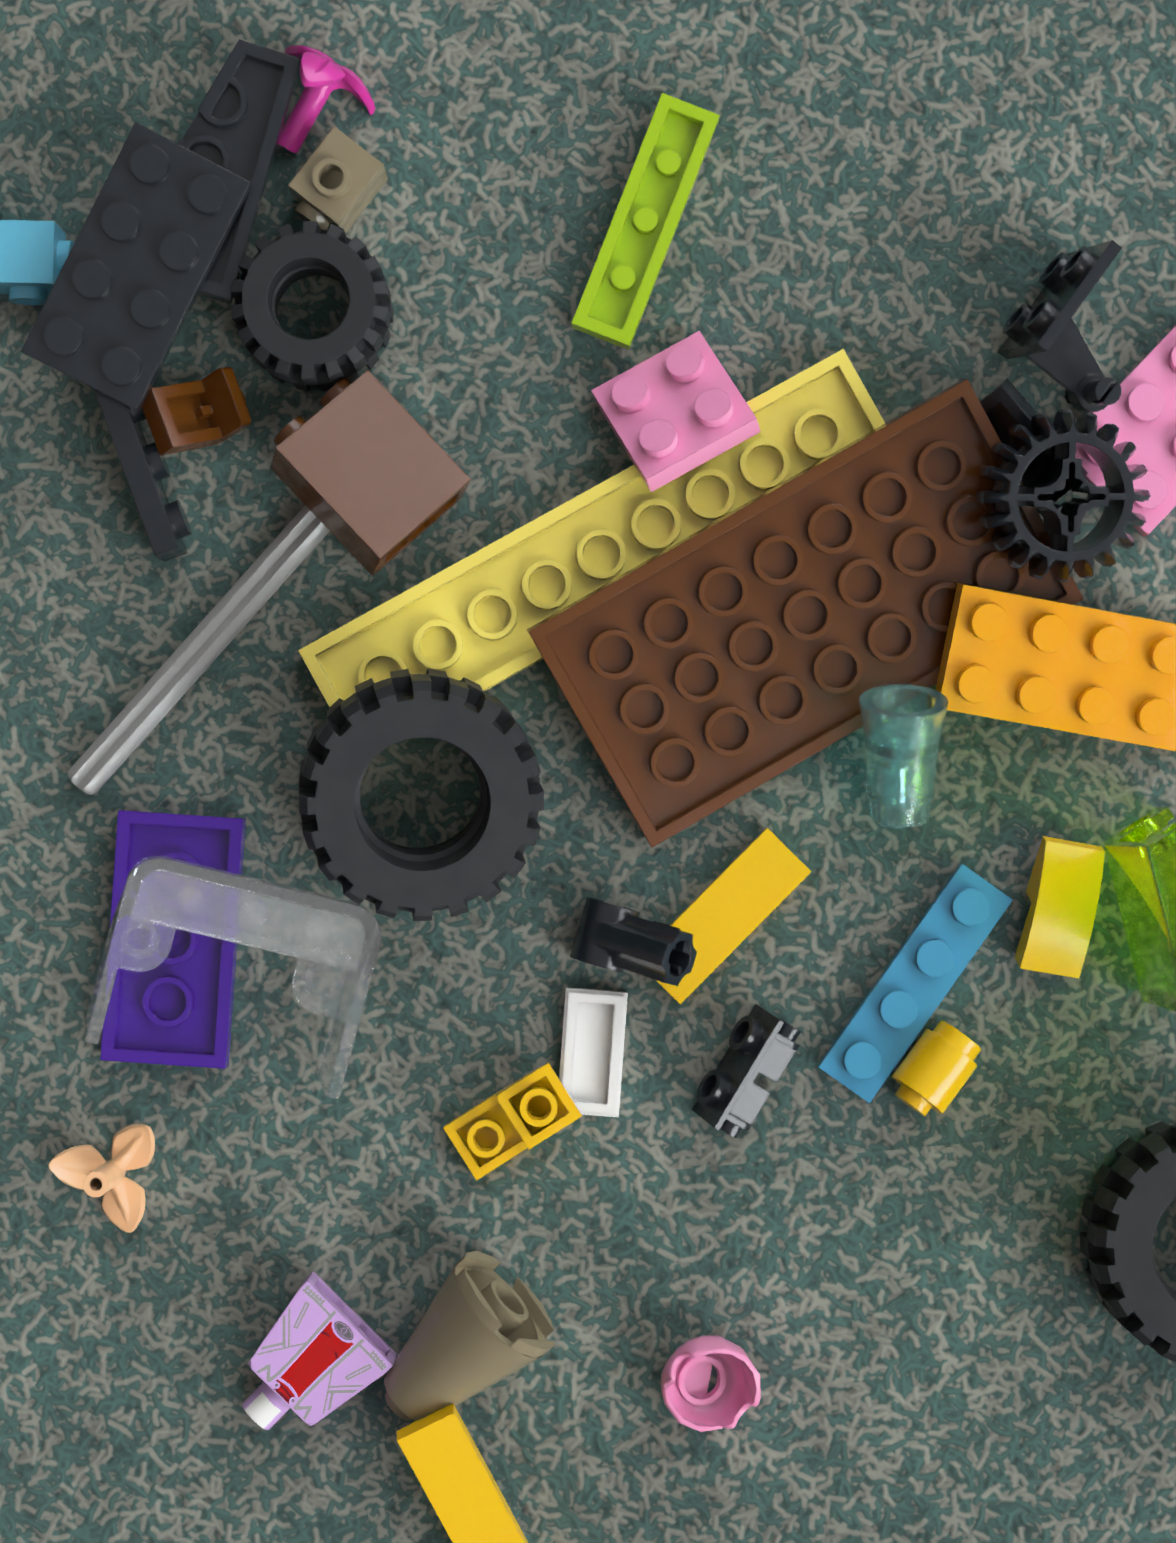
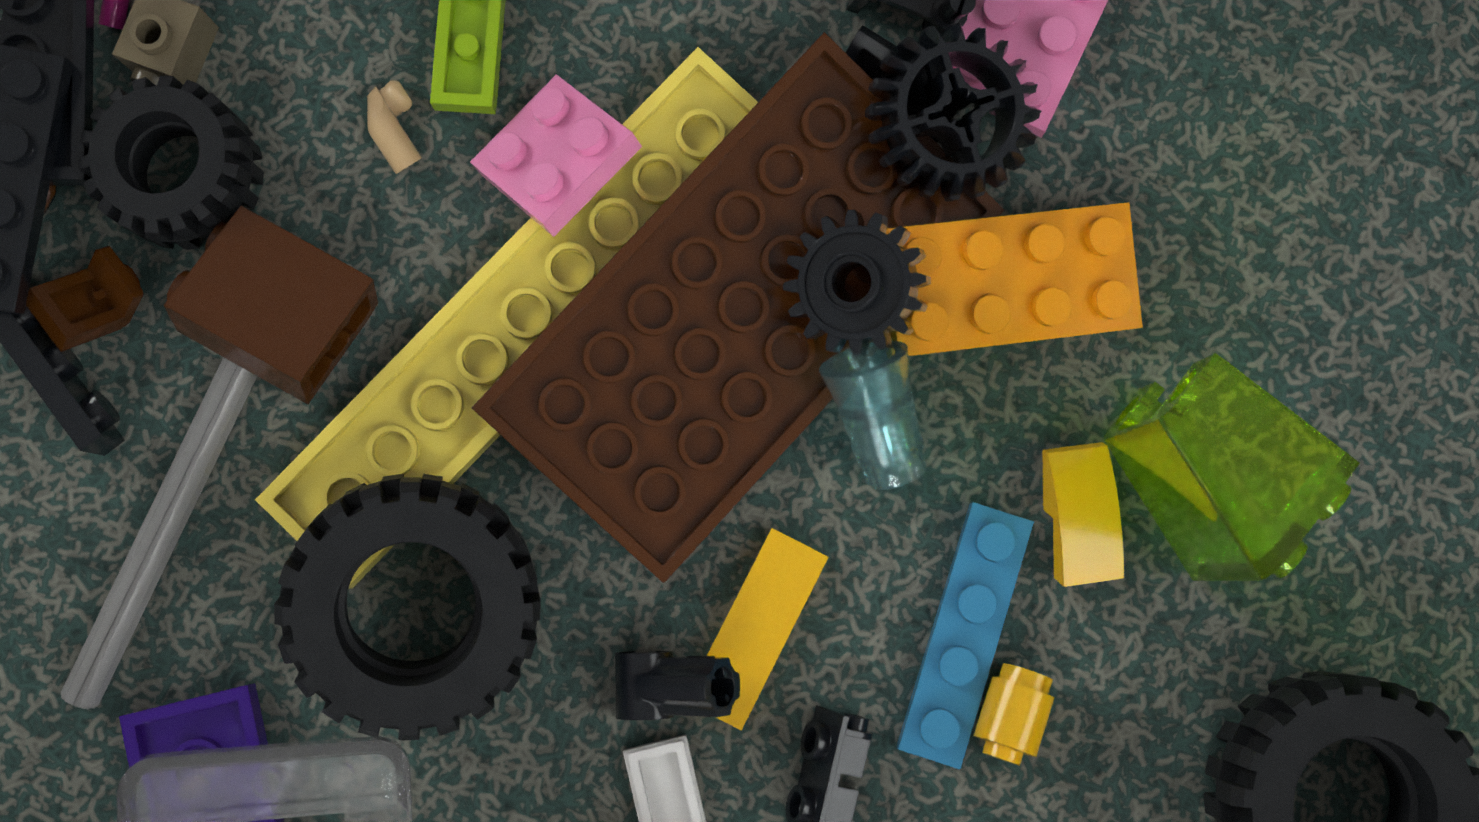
camera: 20 degrees left, 5 degrees down
(521, 333) = (384, 126): none -> tan arm
(887, 625) = (824, 275): none -> black gear

